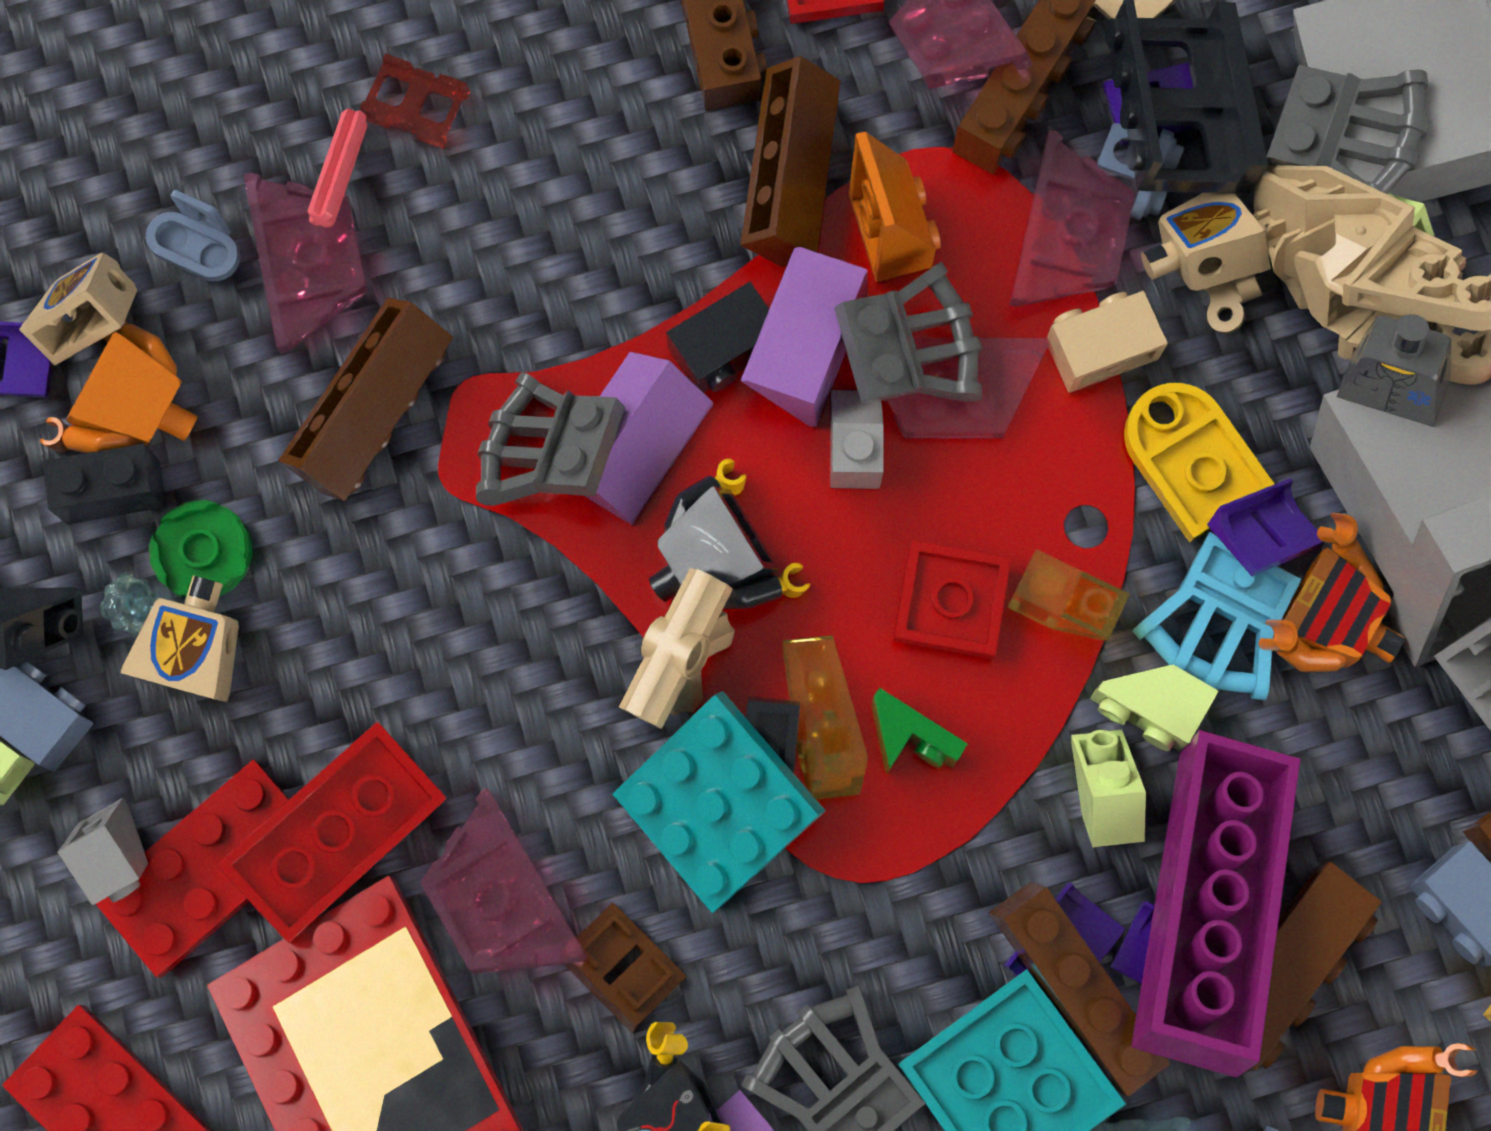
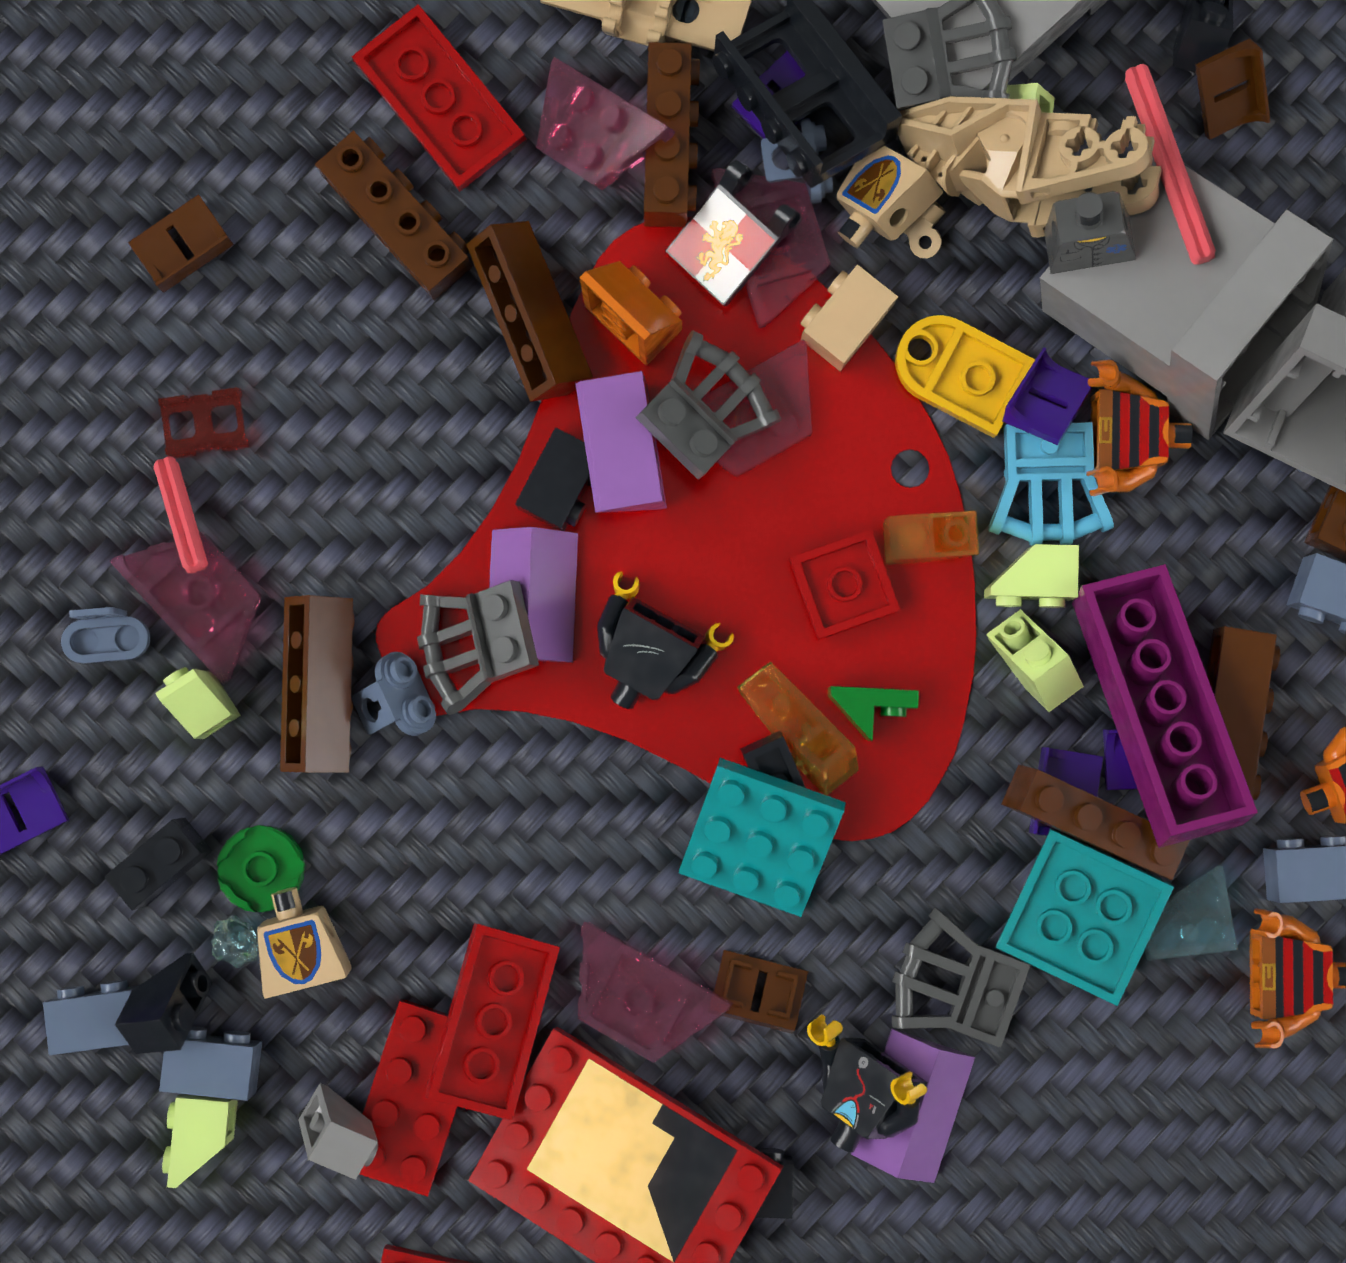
camera: 30 degrees left, 10 degrees up
(95, 296) = (55, 741): tan torso -> none
(125, 397) = (130, 787): orange torso -> none
(241, 348) = (197, 701): none -> yellowish green slope
(440, 459) = (400, 696): none -> sand blue bracket
(678, 649) = (670, 745): tan piece -> none
(855, 441) = (703, 504): light grey slope -> none
(1028, 201) = (726, 240): none -> flag

